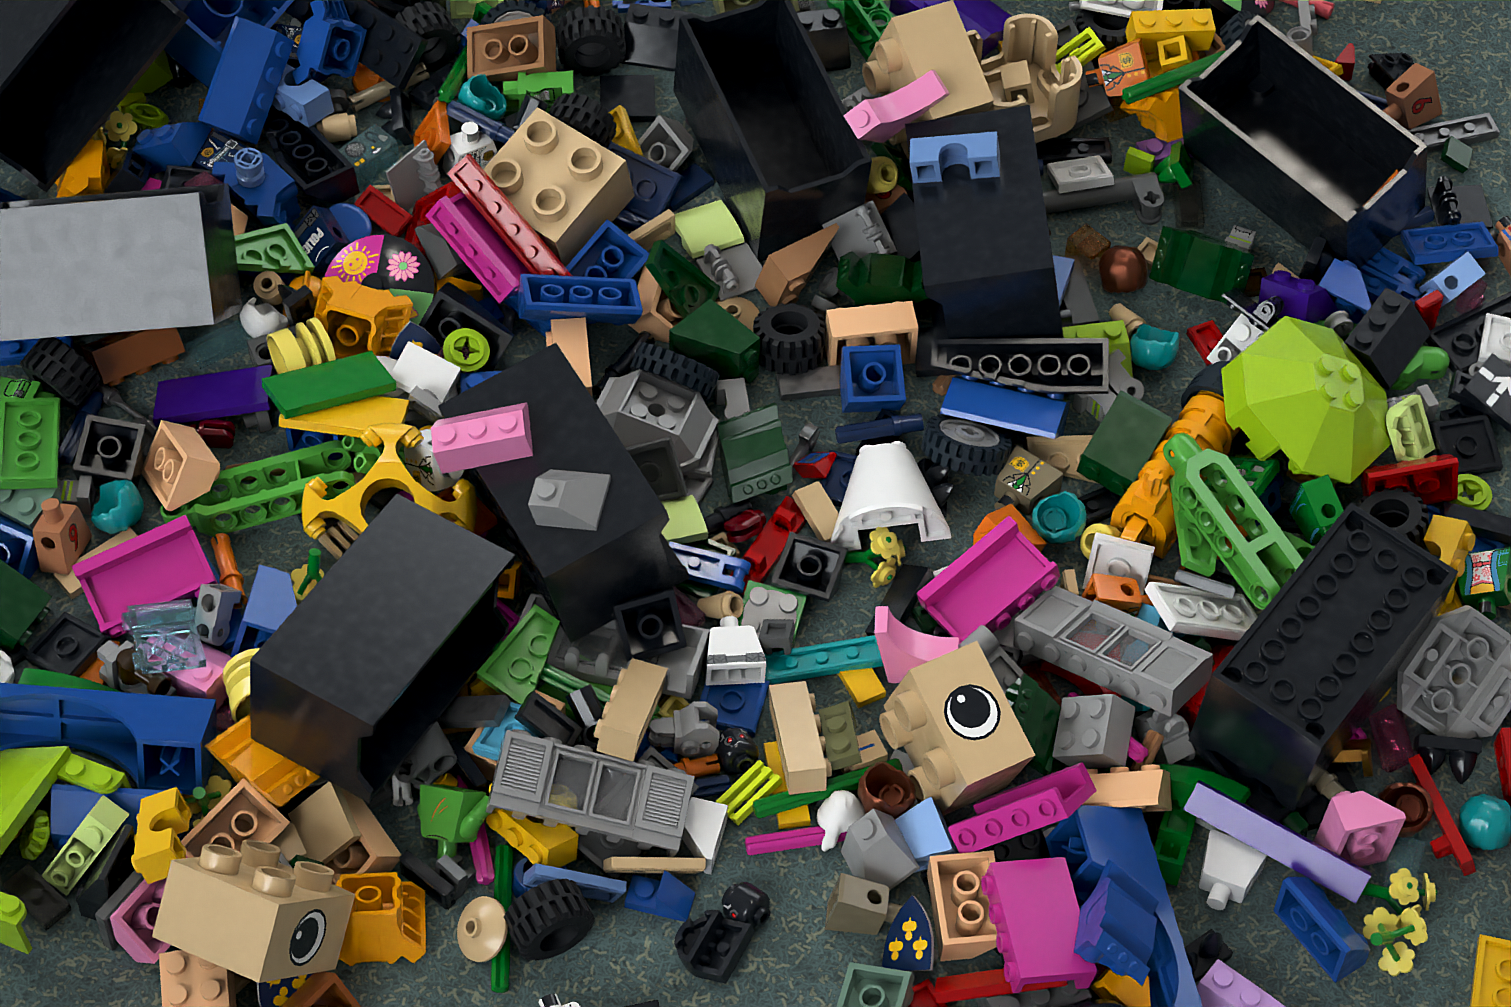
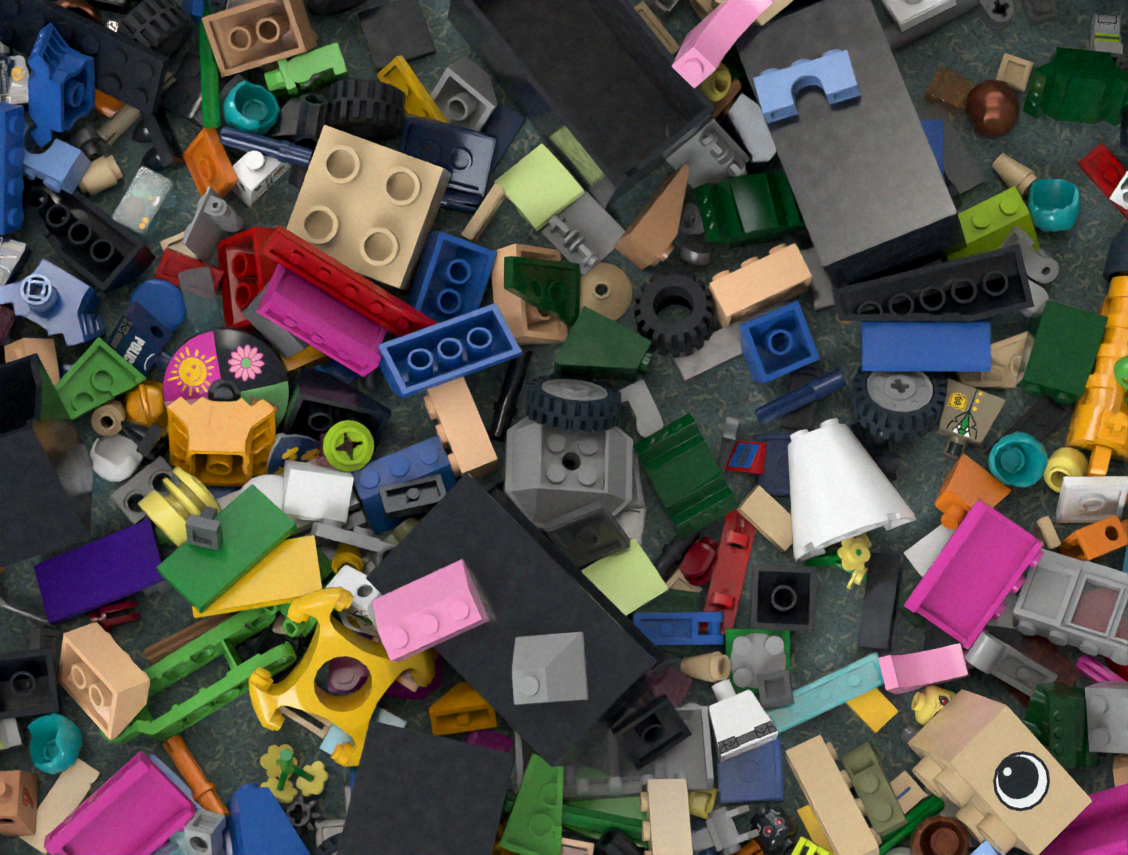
camera: 15 degrees left, 25 degrees up
(314, 359) = (204, 529): none -> dark grey tile
(385, 218) = (200, 299): none -> clear light blue tile

